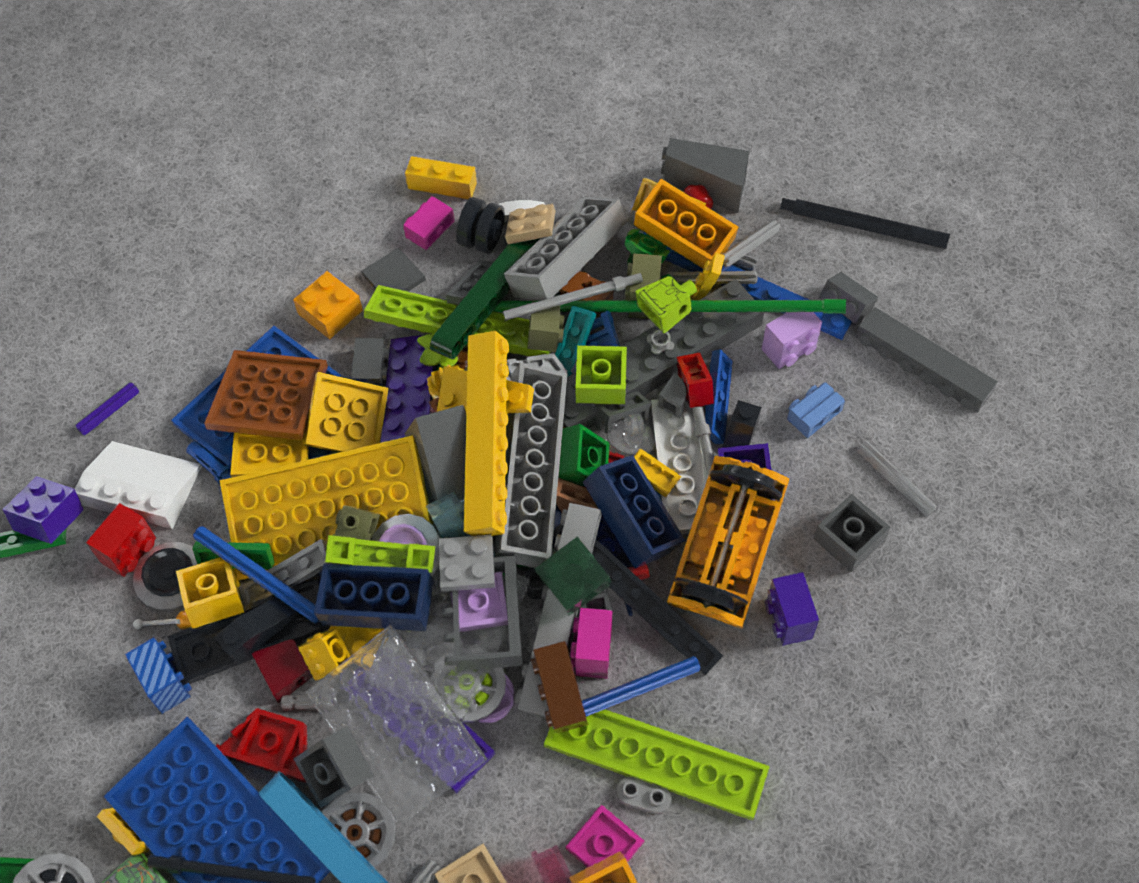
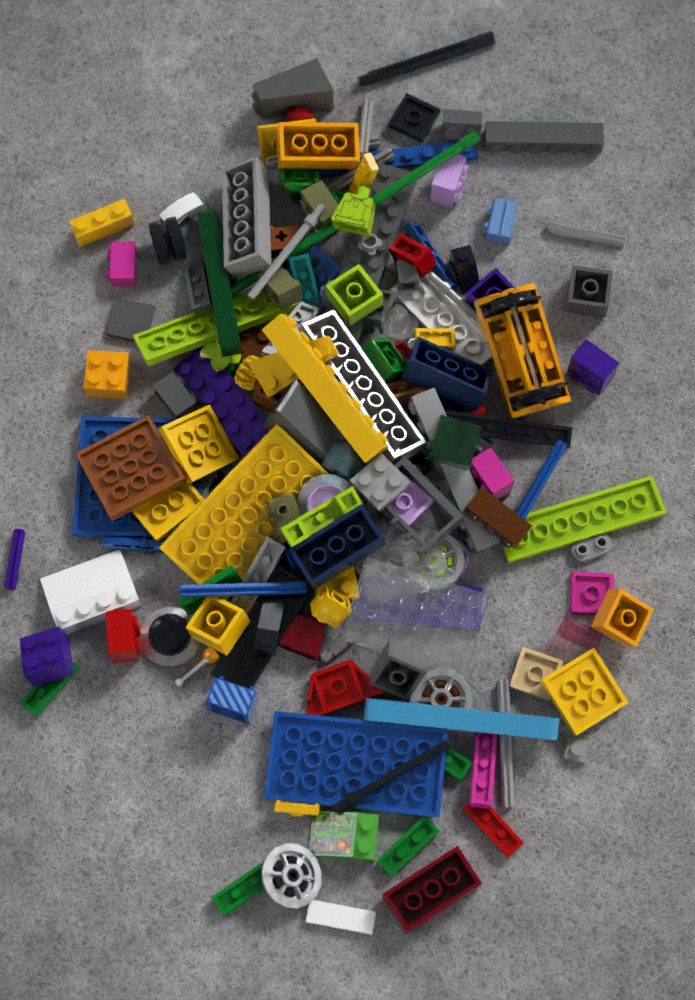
camera: 40 degrees left, 10 degrees up
(530, 223) = (204, 216): tan plate -> none
(807, 264) = (414, 118): none -> black plate

